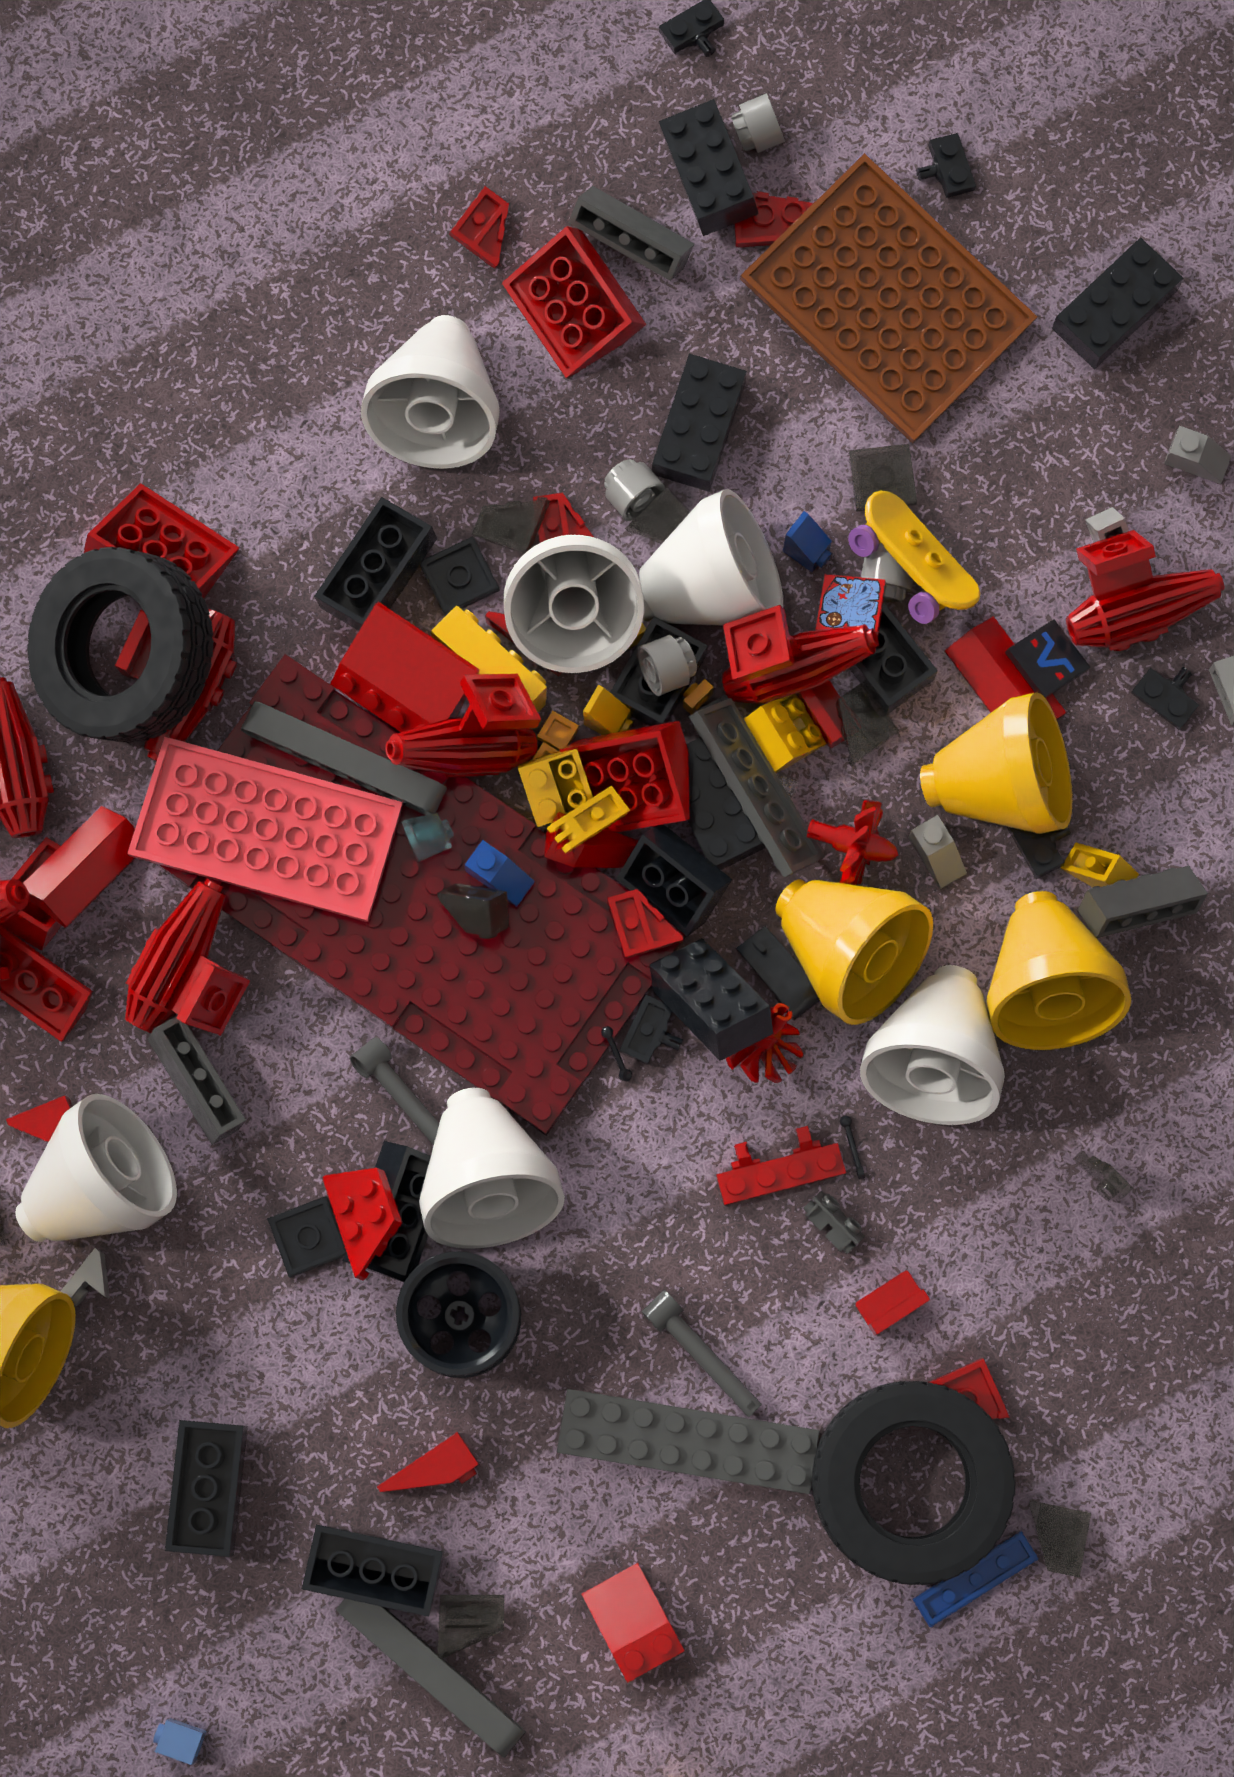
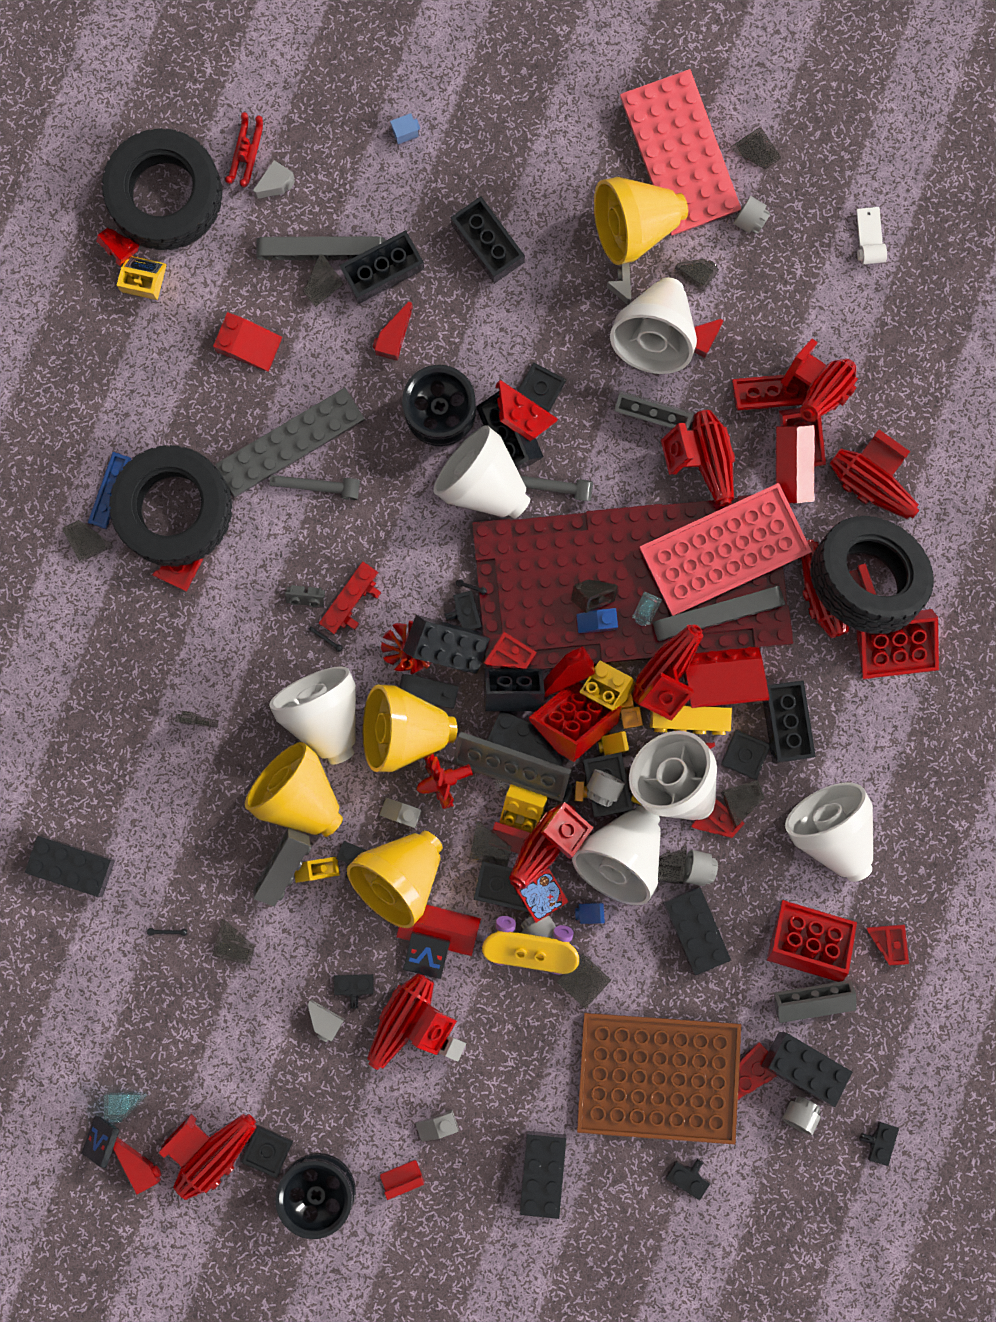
camera: 140 degrees right, 5 degrees up
(589, 819) = (576, 680): yellow hinge -> none
(891, 1302) = (248, 581): red panel -> none

